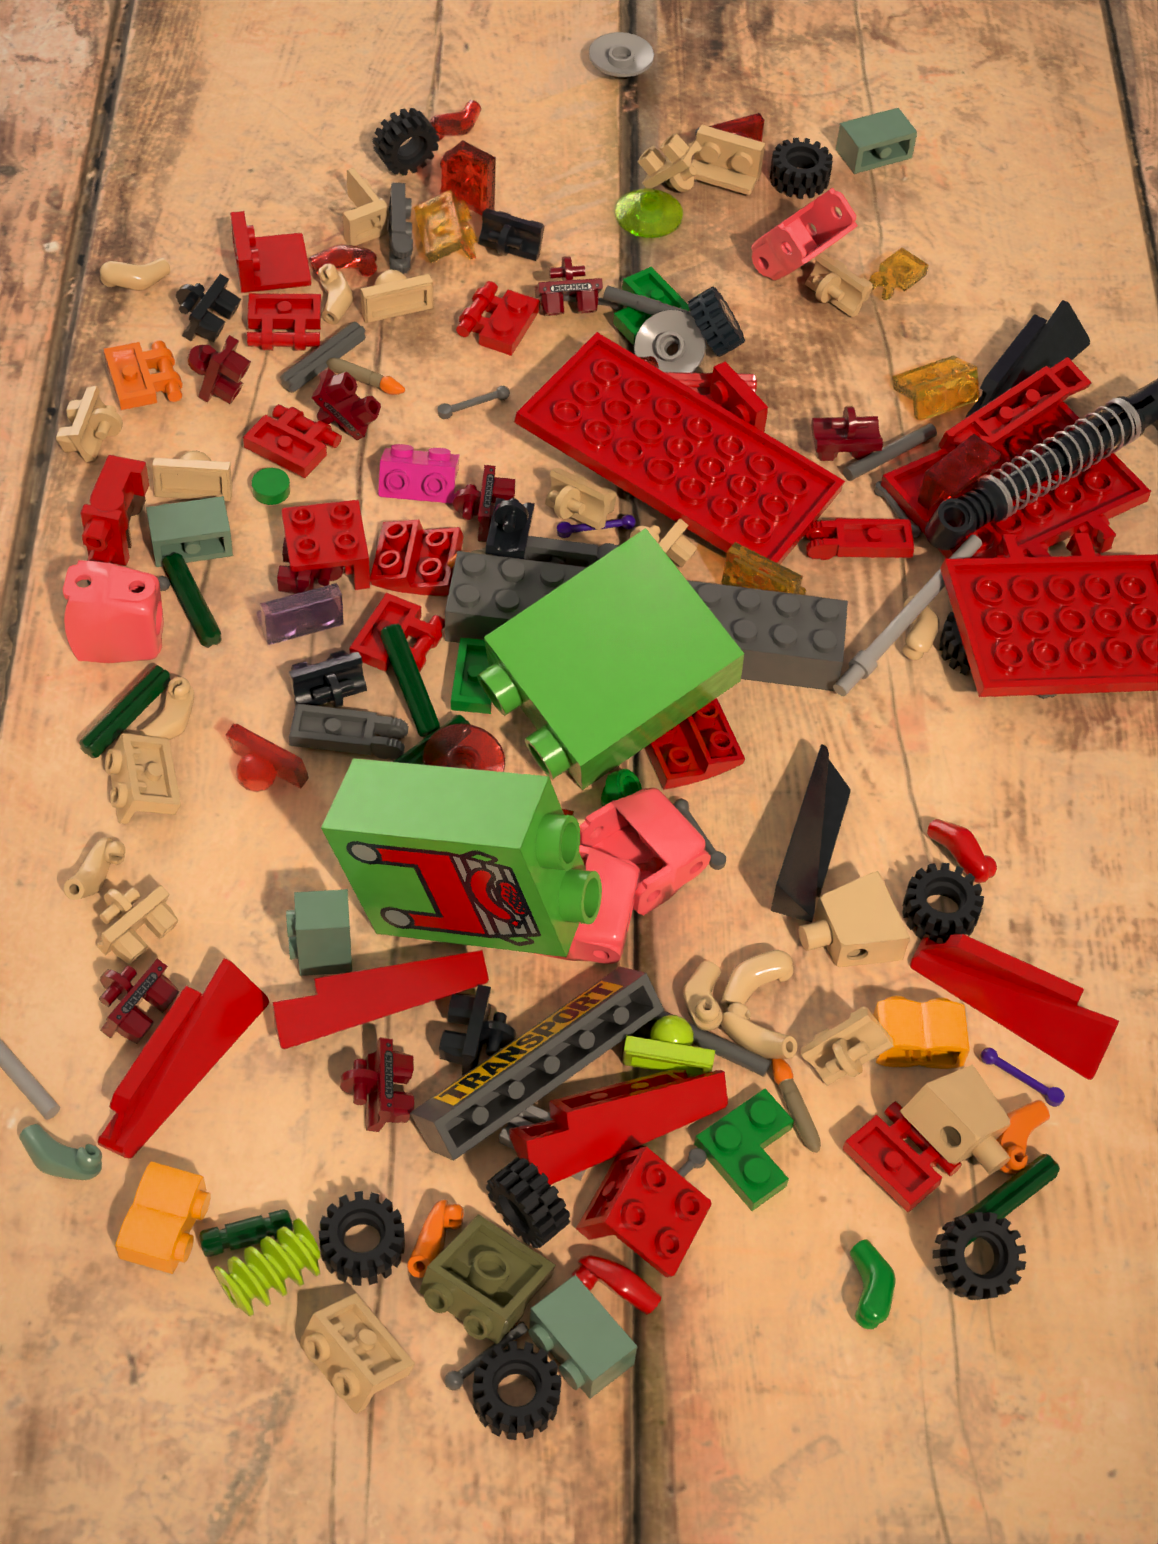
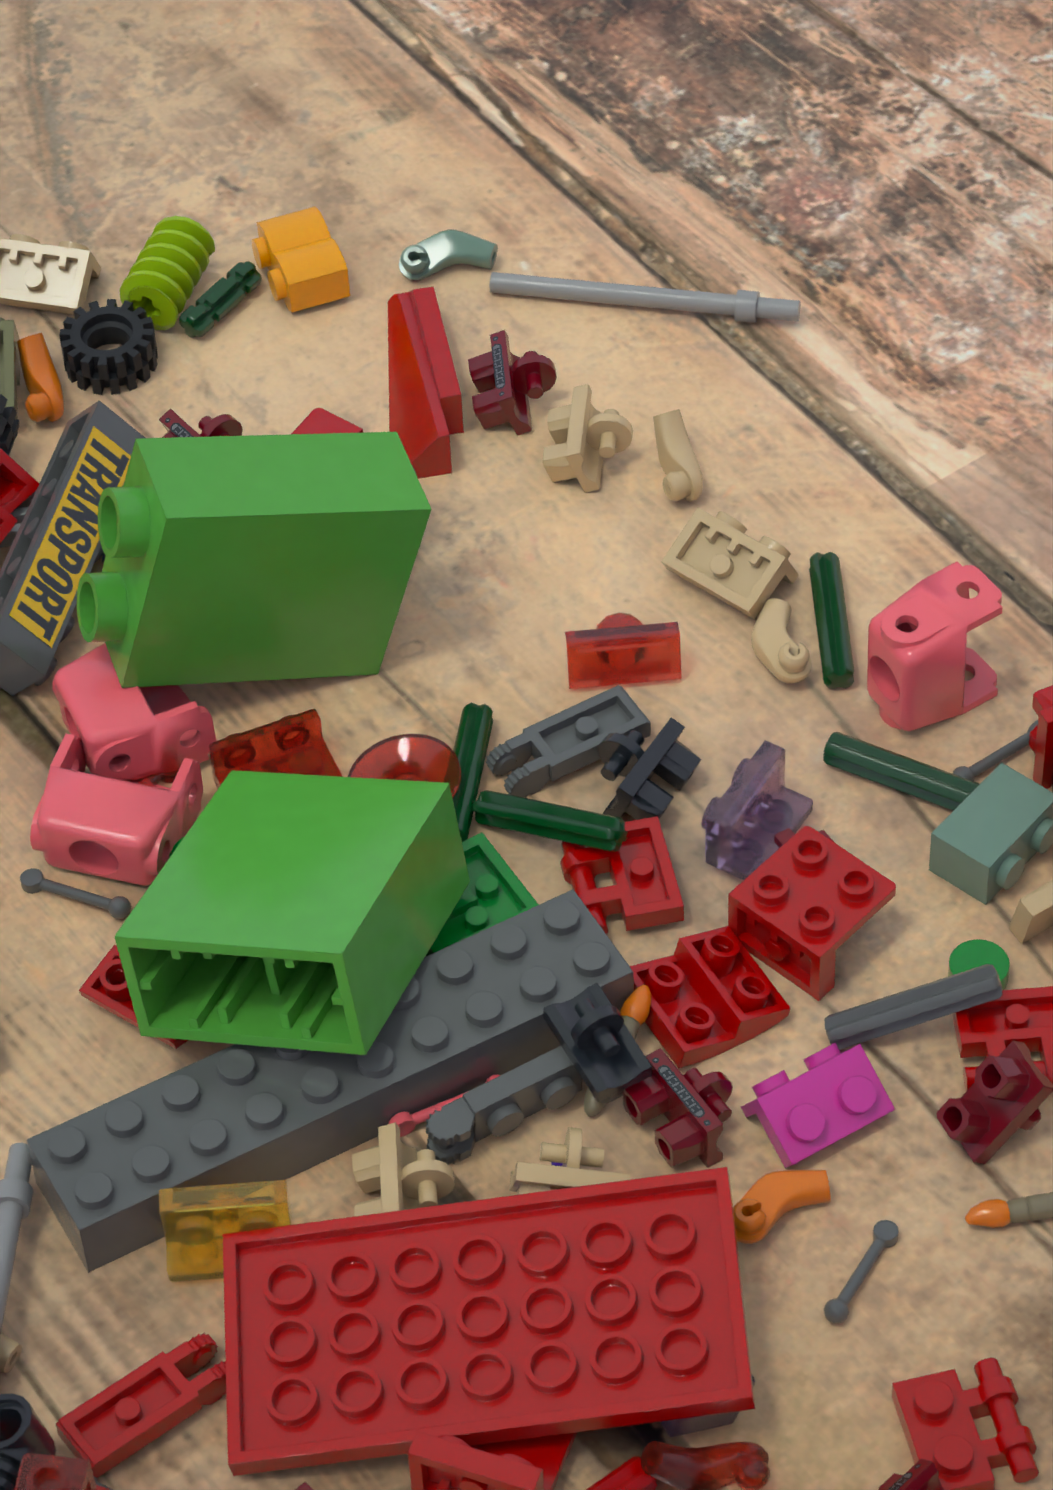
camera: 150 degrees right, 5 degrees down
(330, 471) = (913, 1006): none -> dark grey axle
(484, 448) = (775, 1196): none -> orange arm

